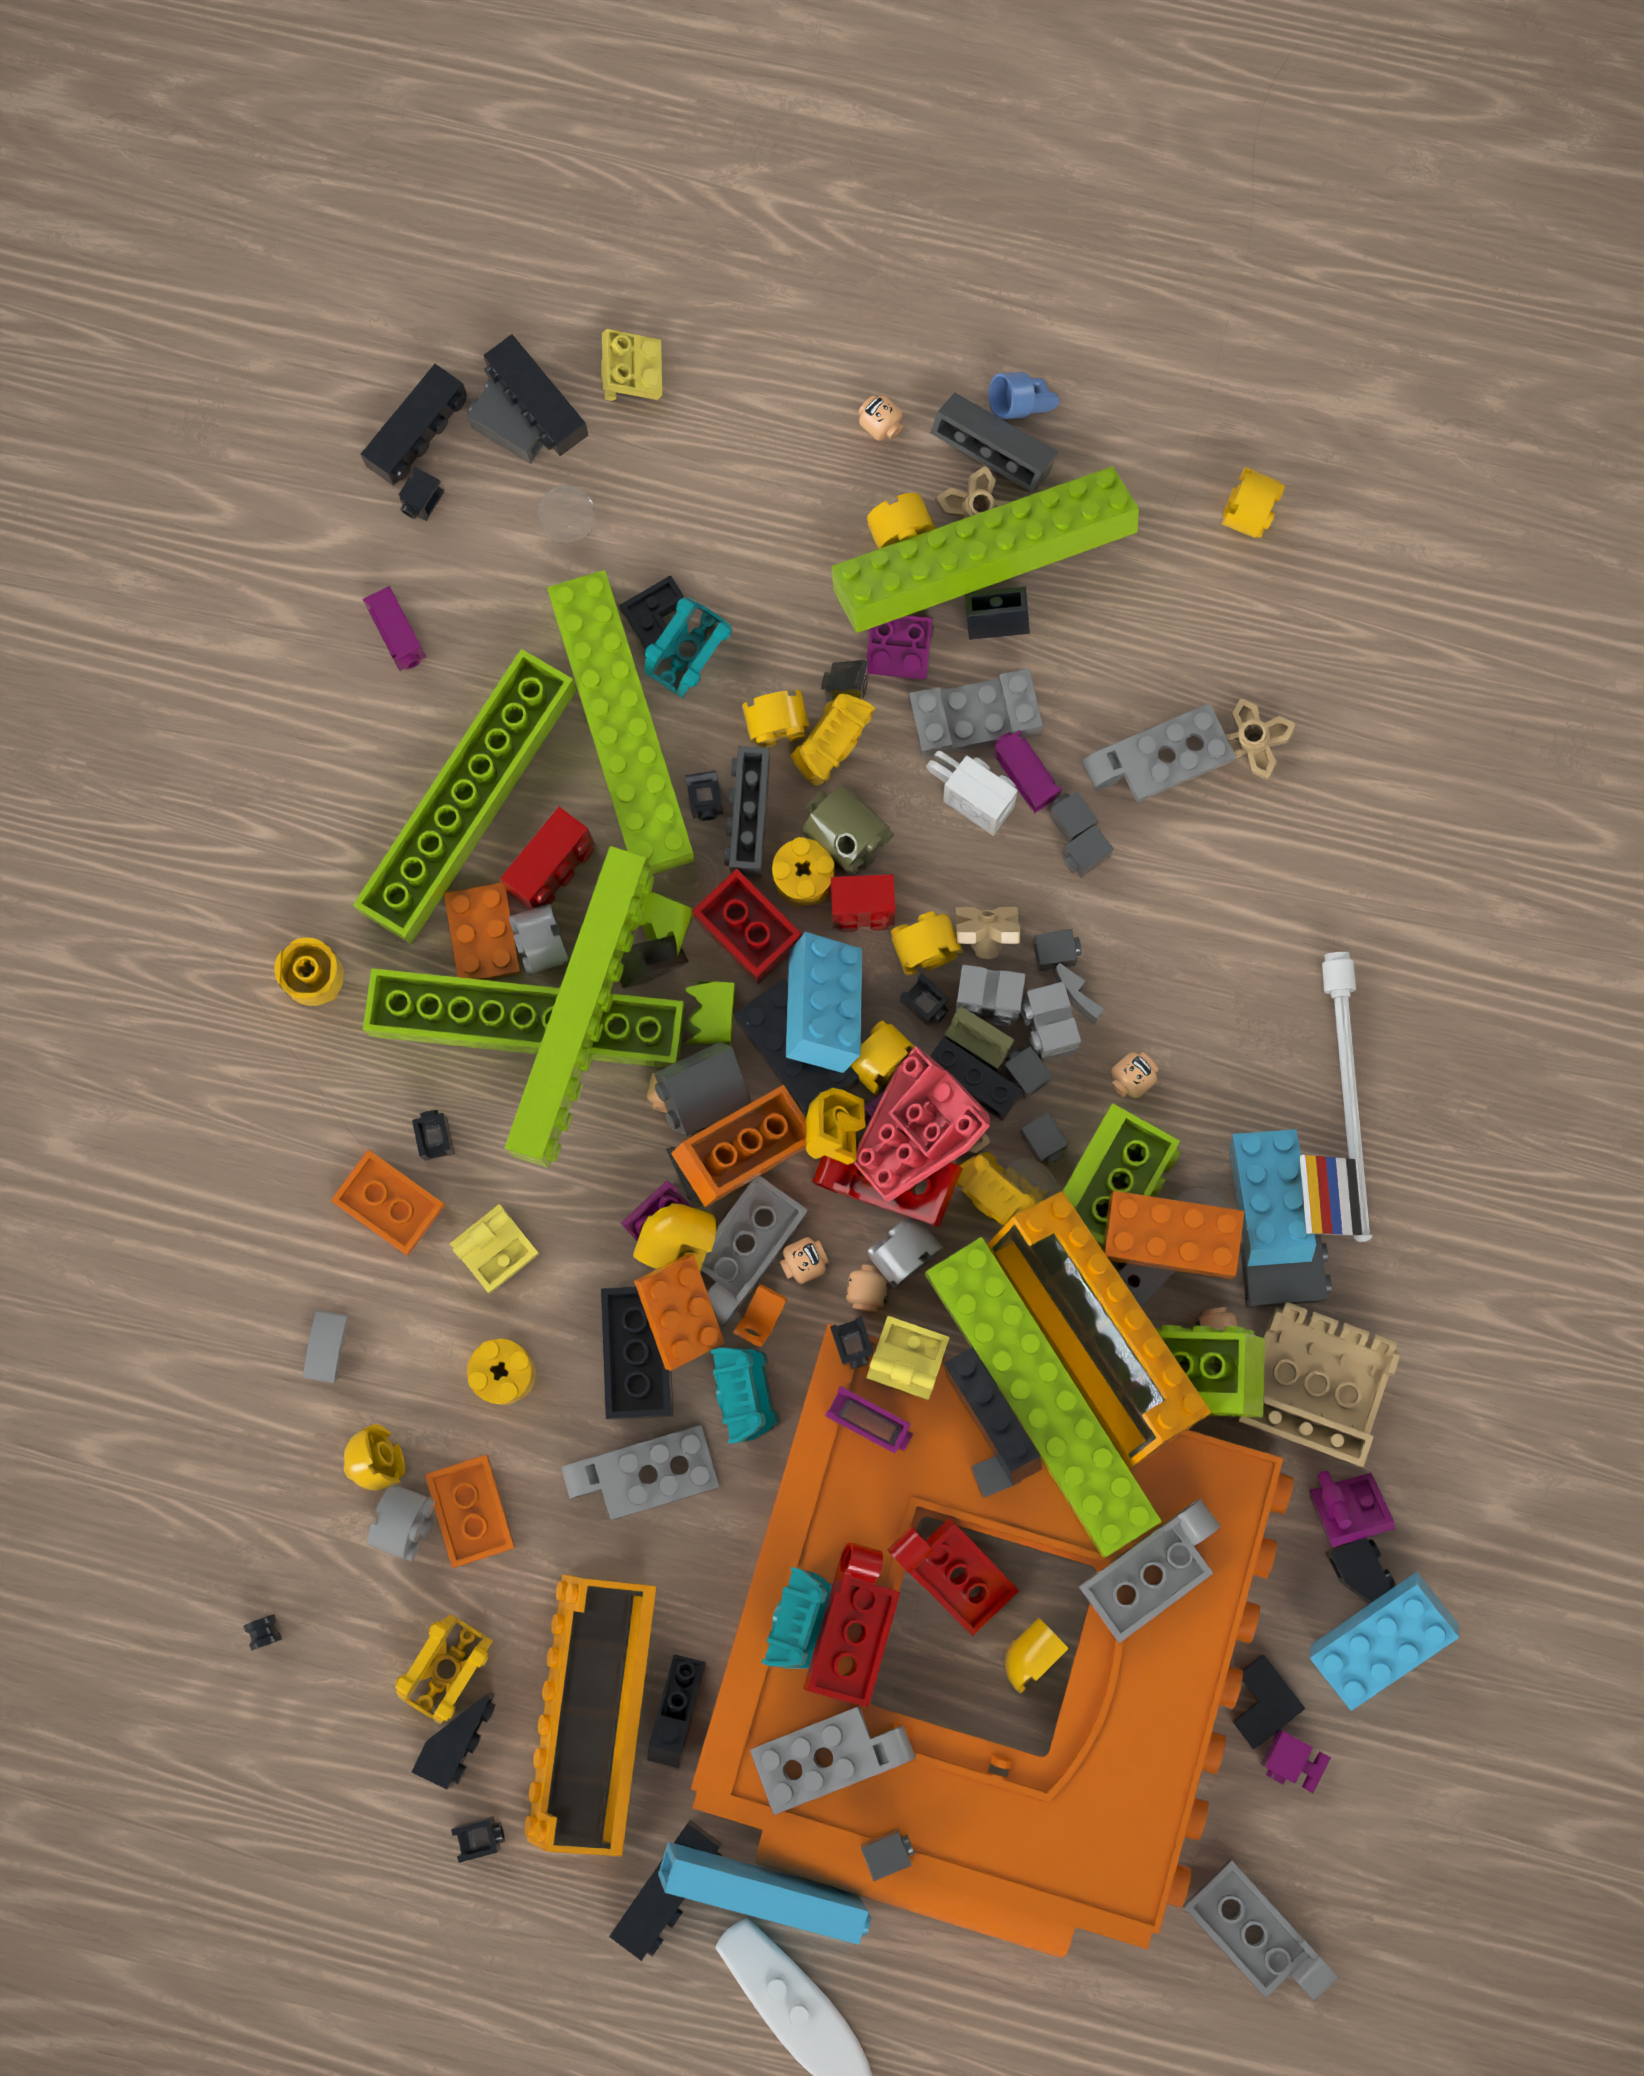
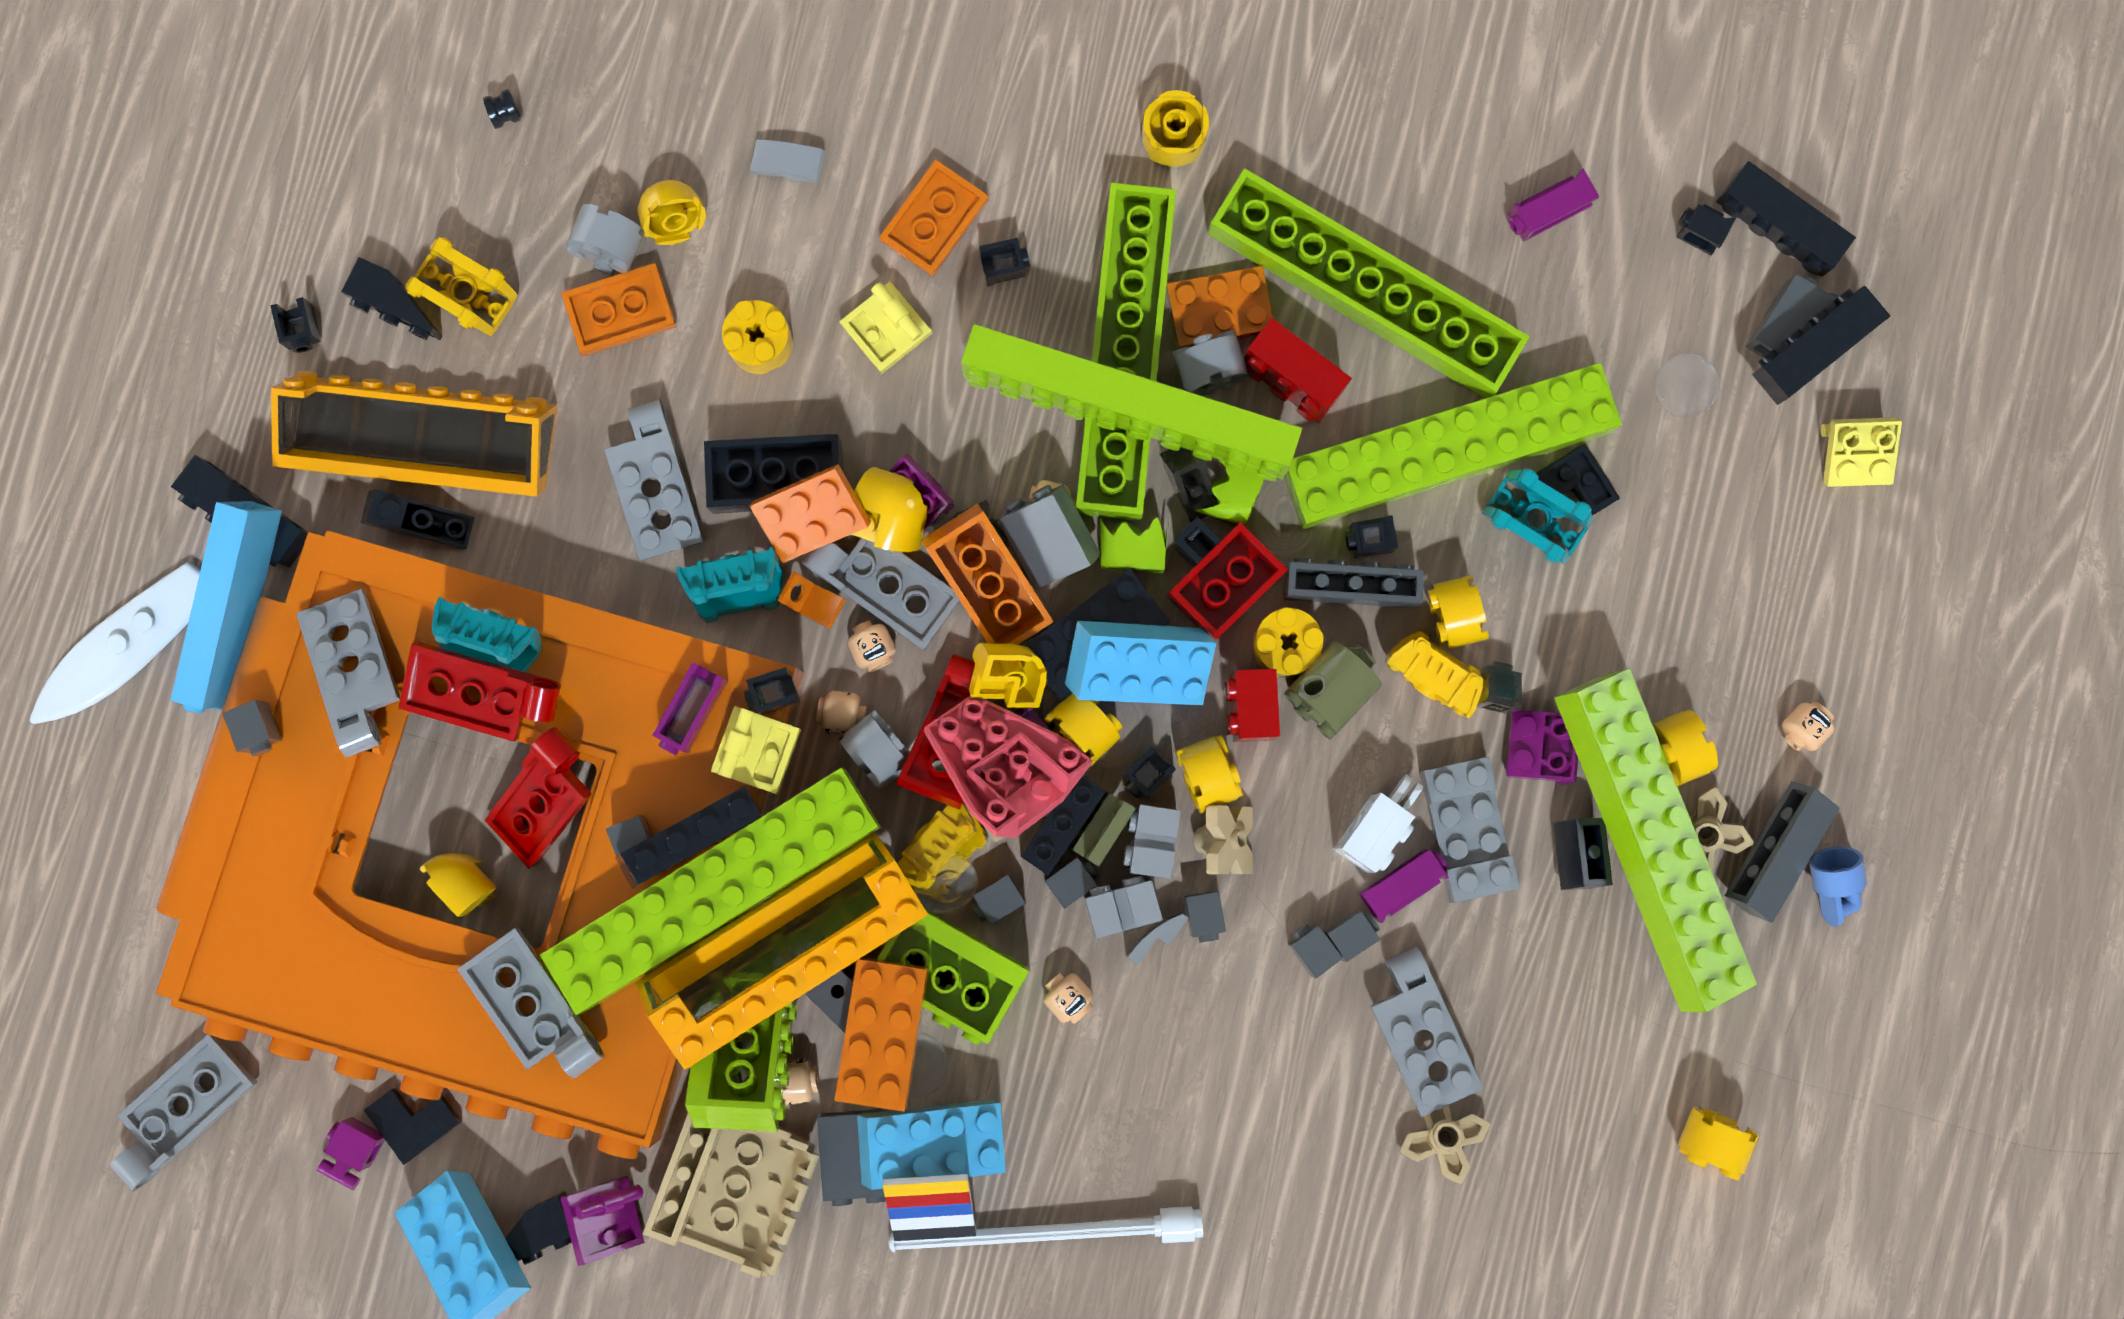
camera: 80 degrees right, 5 degrees up
(708, 954) = (1196, 541): none -> black window

